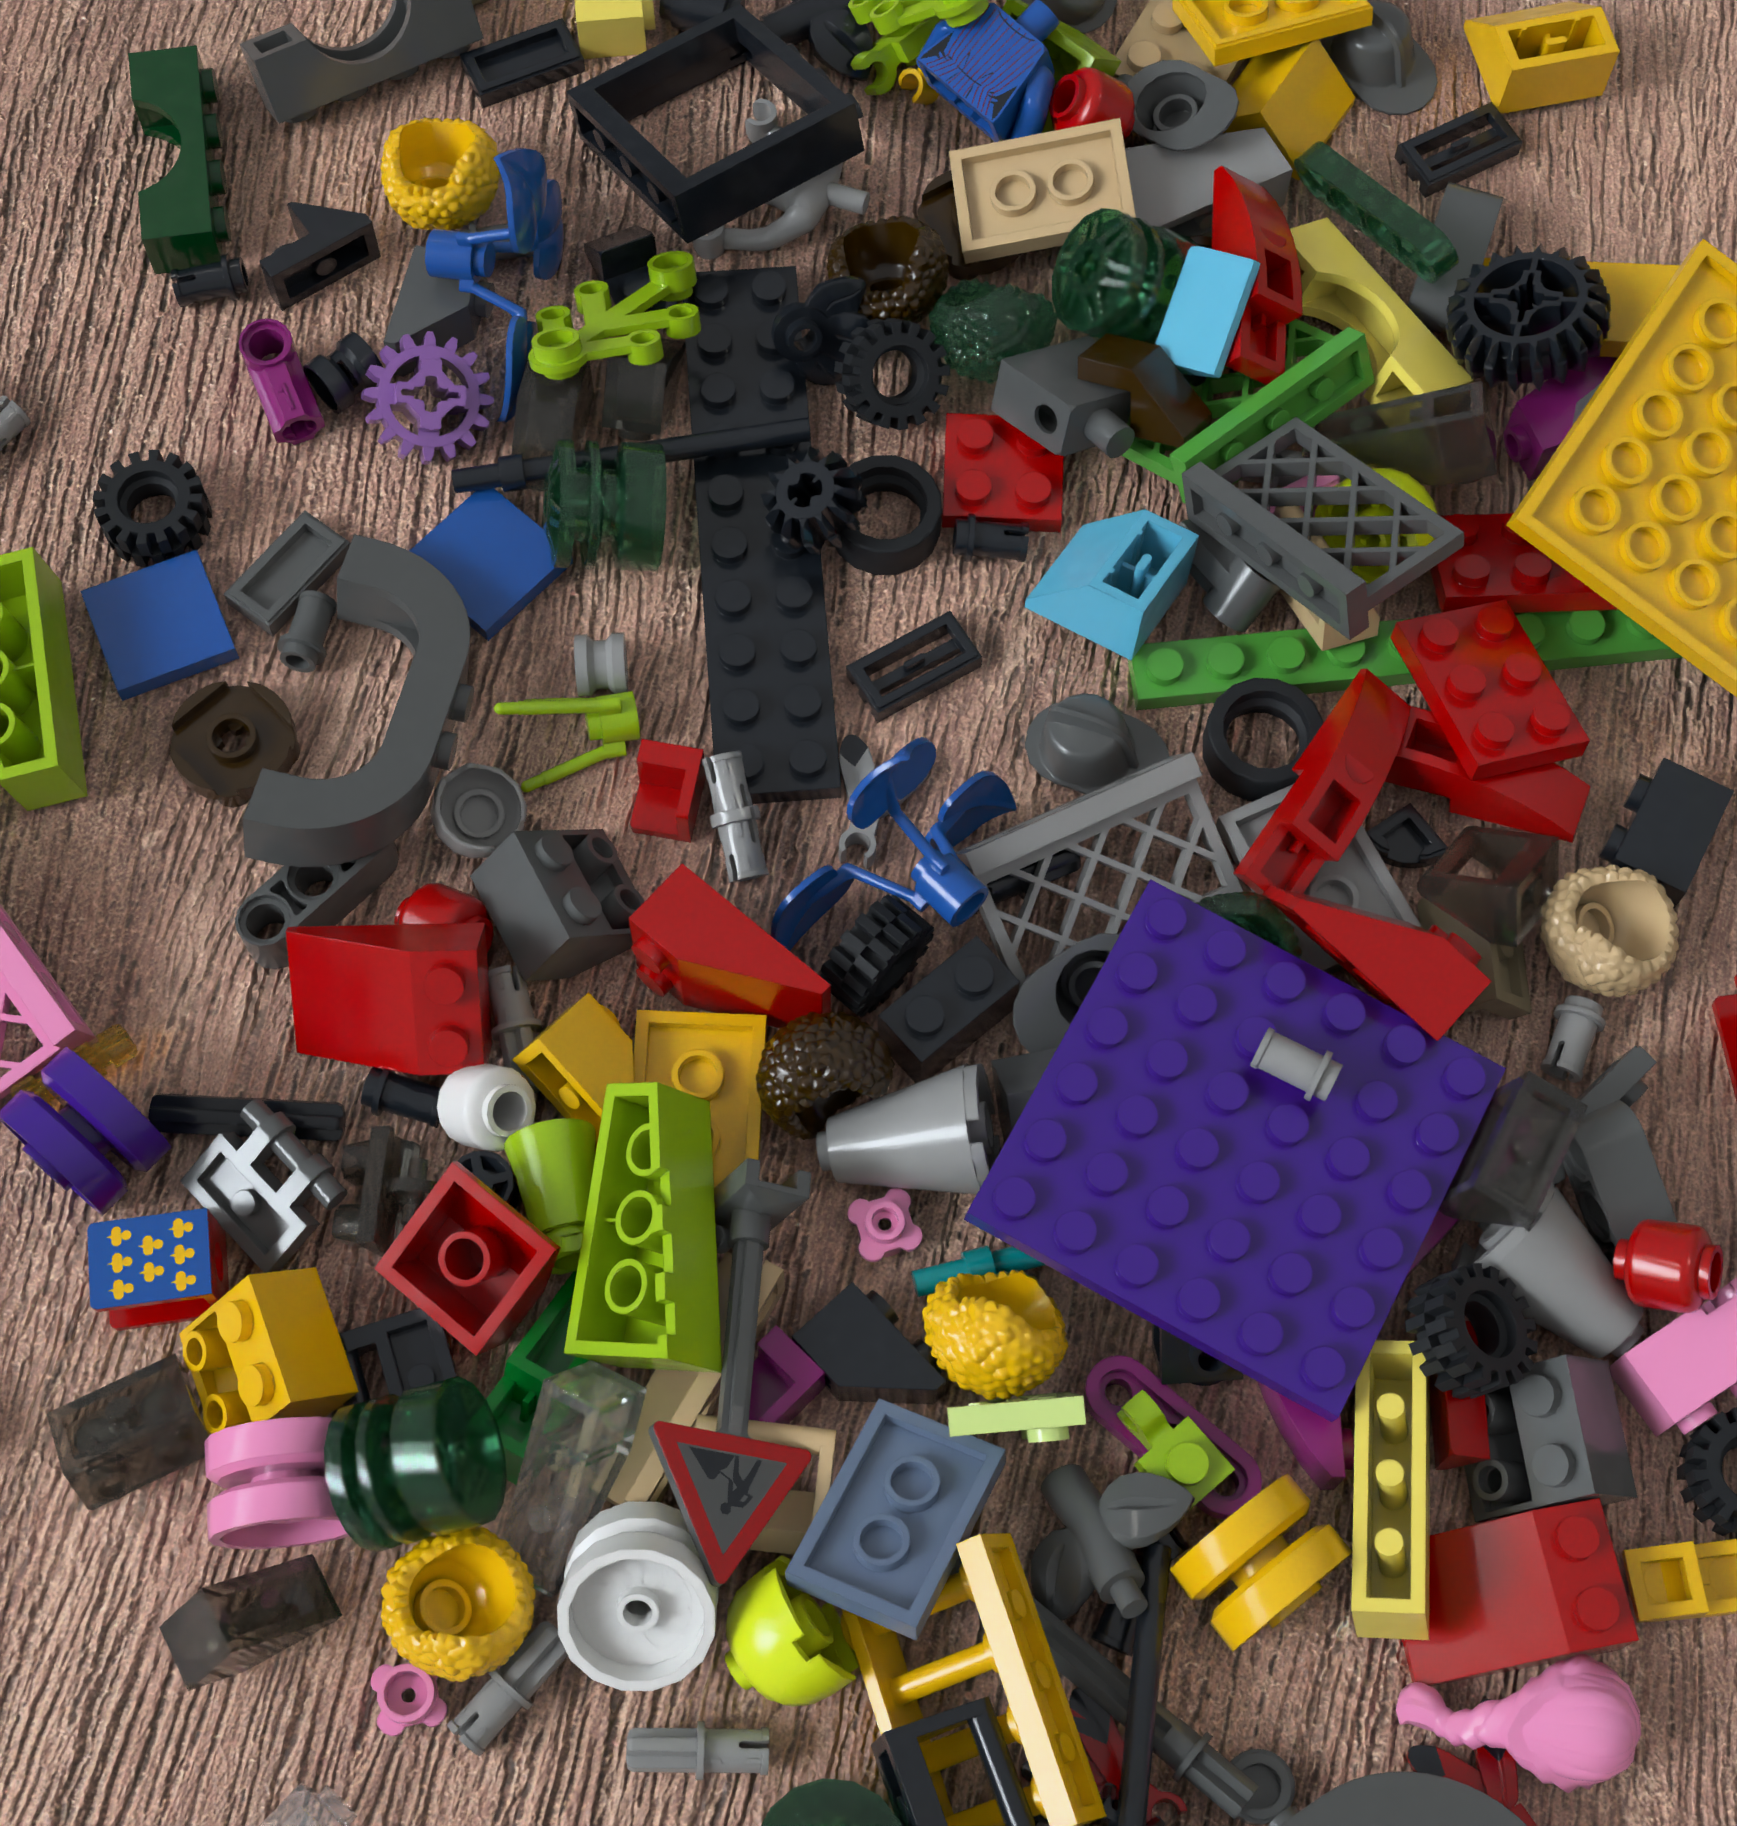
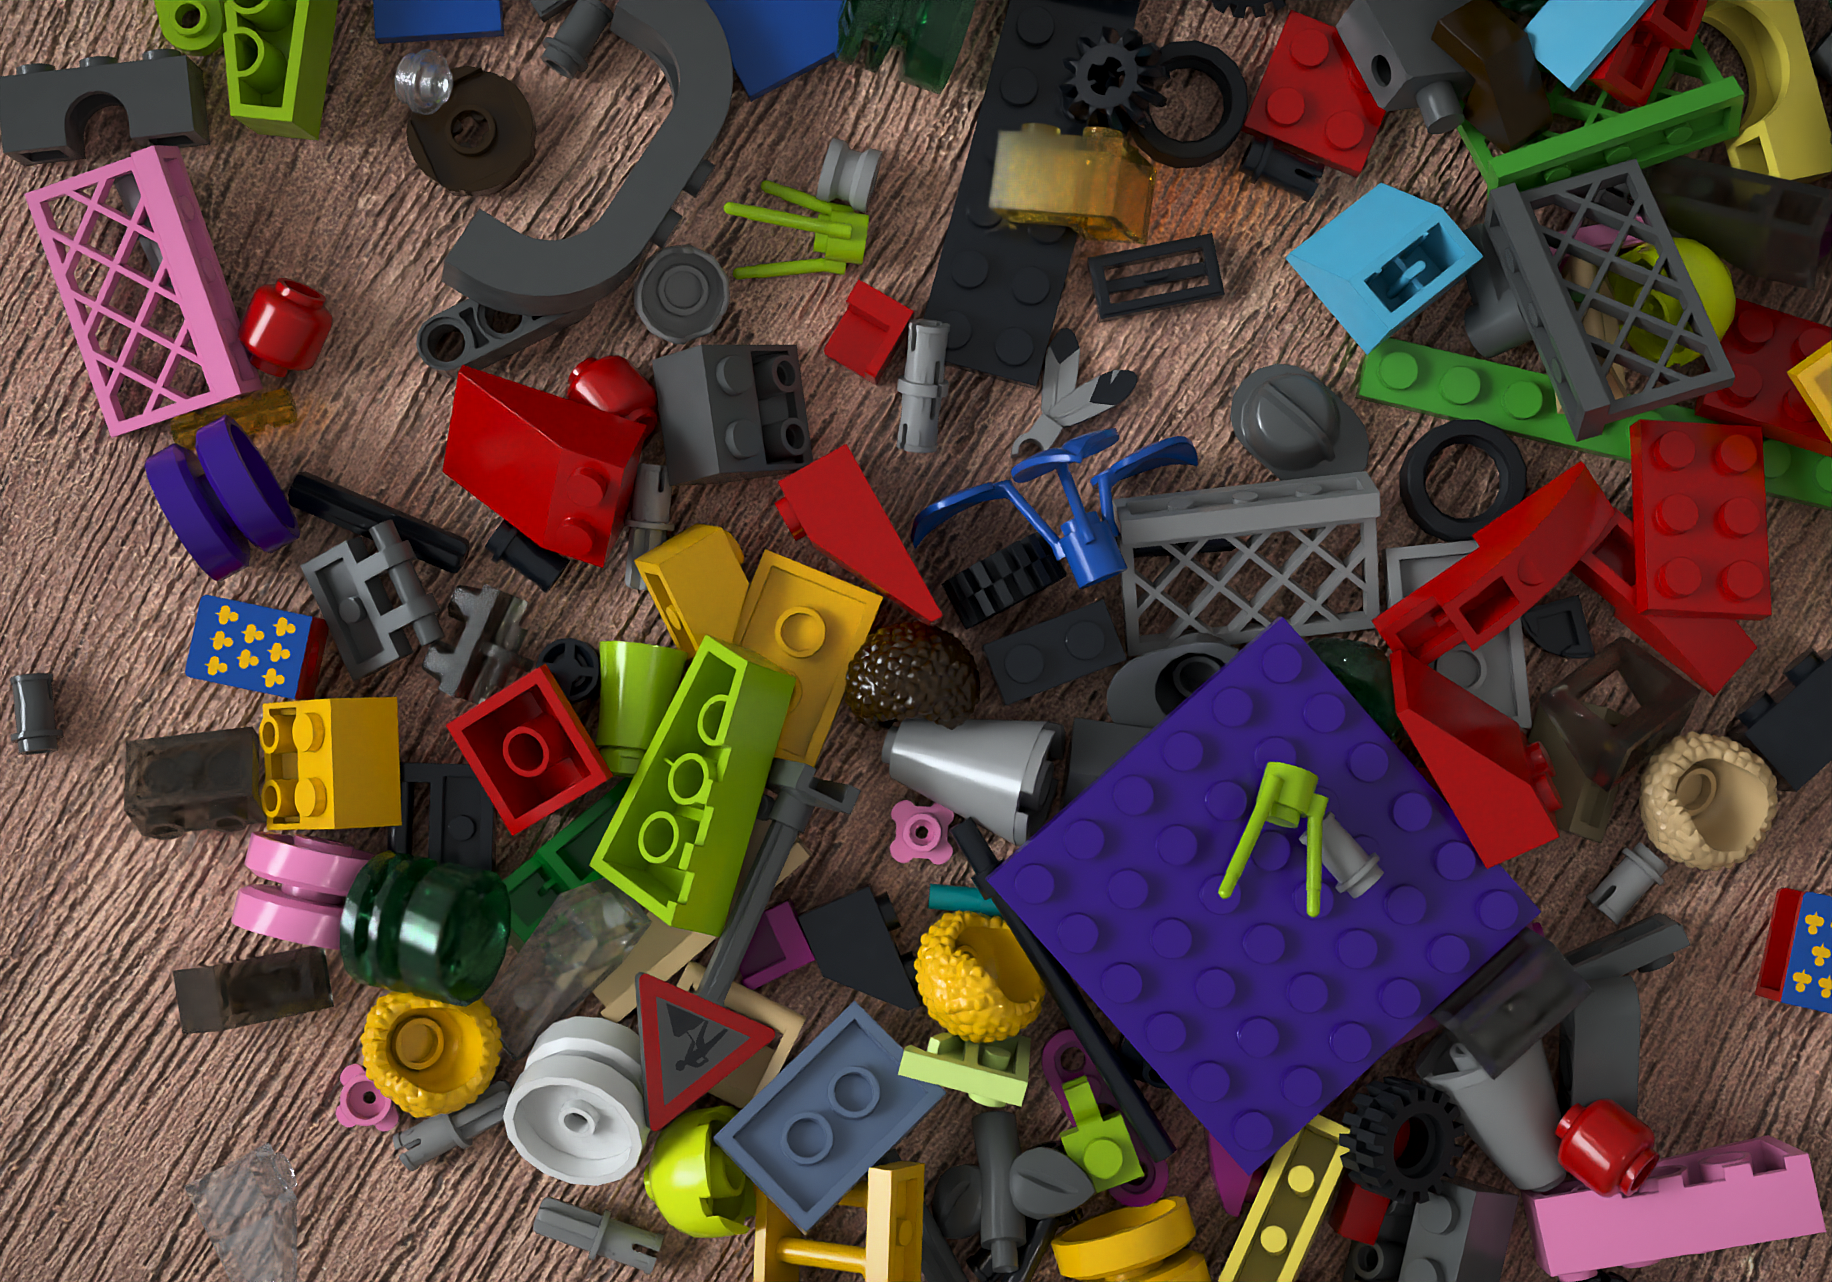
camera: 25 degrees right, 20 degrees up
(102, 965) = (285, 327): none -> red head
(175, 700) = (423, 81): none -> clear plate
(485, 1105) = (596, 598): white head -> none
(809, 591) = (1074, 181): none -> clear yellow brick
(1086, 1316) = (1067, 999): none -> black bar
(1220, 1029) = (1283, 799): none -> lime plant

